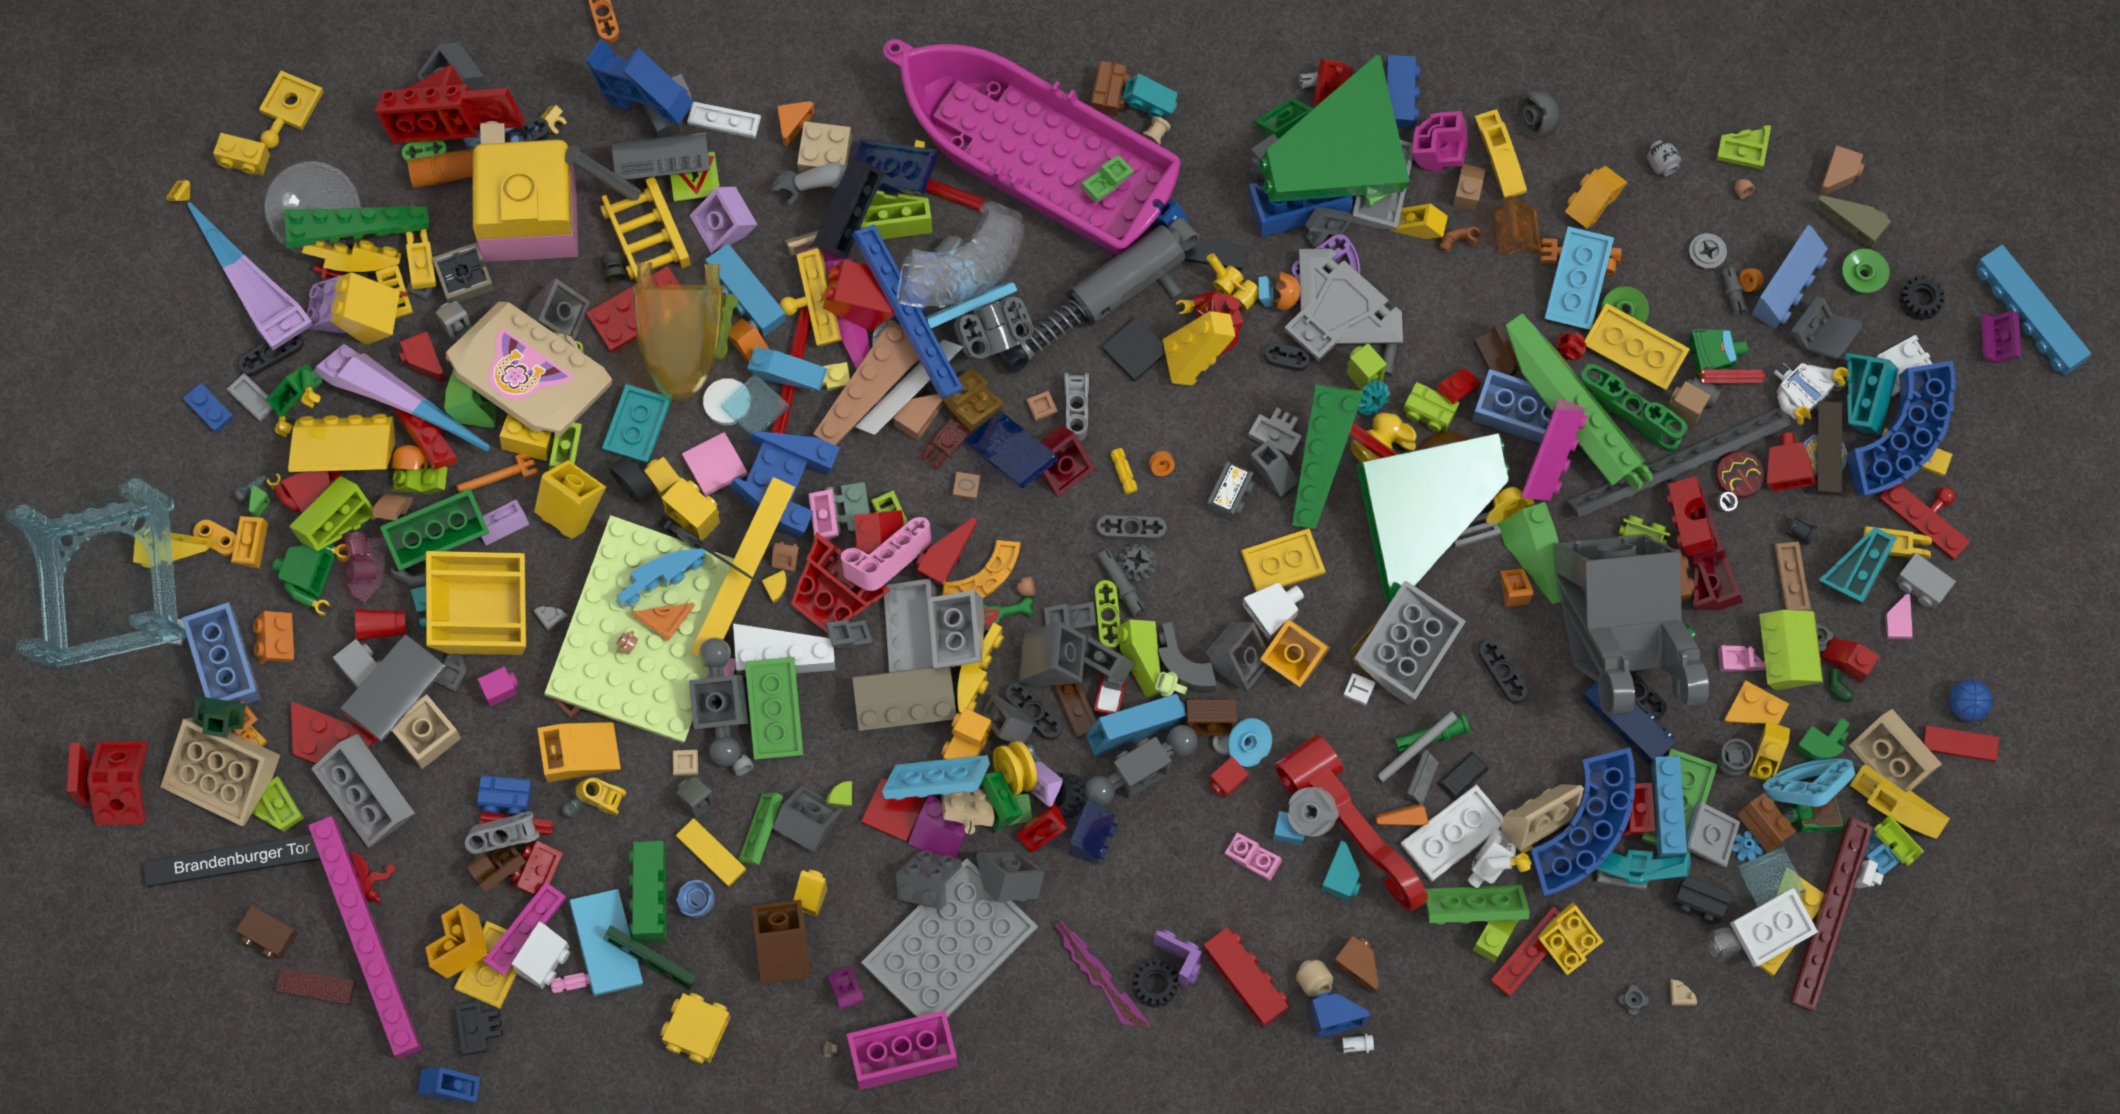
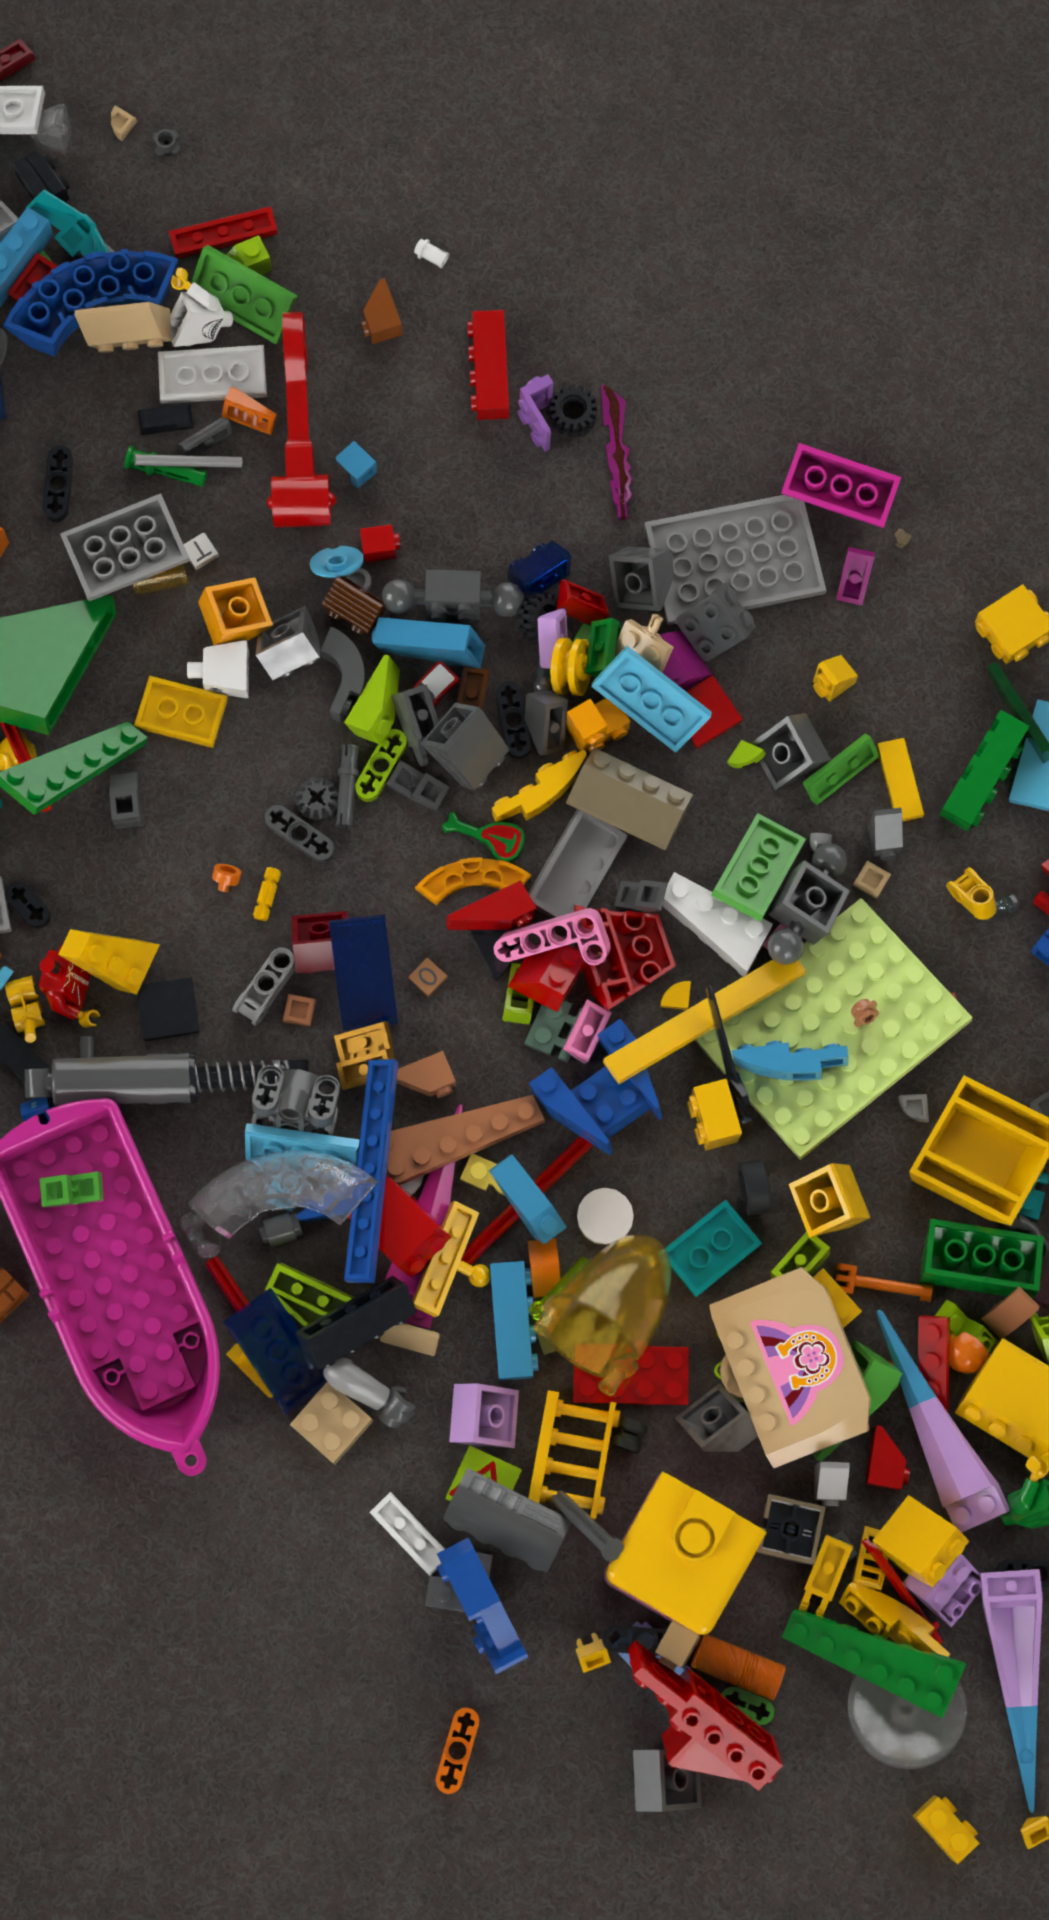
camera: 145 degrees left, 5 degrees up
(293, 115) = (876, 1866): yellow plate -> none
(498, 686) = (1010, 1061): dark pink brick -> none
(504, 521) = (902, 1235): lavender slope -> none
(578, 750) = (969, 950): light orange slope -> none
(661, 475) = (720, 1174): yellow brick -> none
(664, 619) = (809, 1018): orange tile -> none
(699, 893) = (950, 734): medium blue hair -> none
(714, 463) = (659, 1157): bright pink slope -> none
(755, 405) = (582, 1187): clear light blue tile -> none
(781, 941) = (889, 648): reddish brown slope -> none
(785, 556) = (650, 1015): nougat tile -> none
(792, 119) = (342, 1481): orange slope -> none
(902, 393) = (428, 1104): white sticker -> none
(947, 441) = (415, 1034): clear red hinge -> none
(956, 629) = (538, 827): light grey slope -> none
(1026, 586) = (438, 839): nougat hinge -> none
(1168, 684) = (373, 654): yellowish green piece -> none
(1230, 491) = (181, 805): brick -> none
(1253, 857) = (406, 465): bright pink slope -> none
(1277, 431) = (94, 836): light grey hinge -> none
(1299, 810) = (320, 458): light grey plate -> none
(1314, 978) = (429, 326): tan head -> none
(1336, 1014) = (437, 277): blue slope -> none
(1342, 875) = (340, 396): teal slope -> none
(1570, 938) = (182, 220): yellow slope -> none

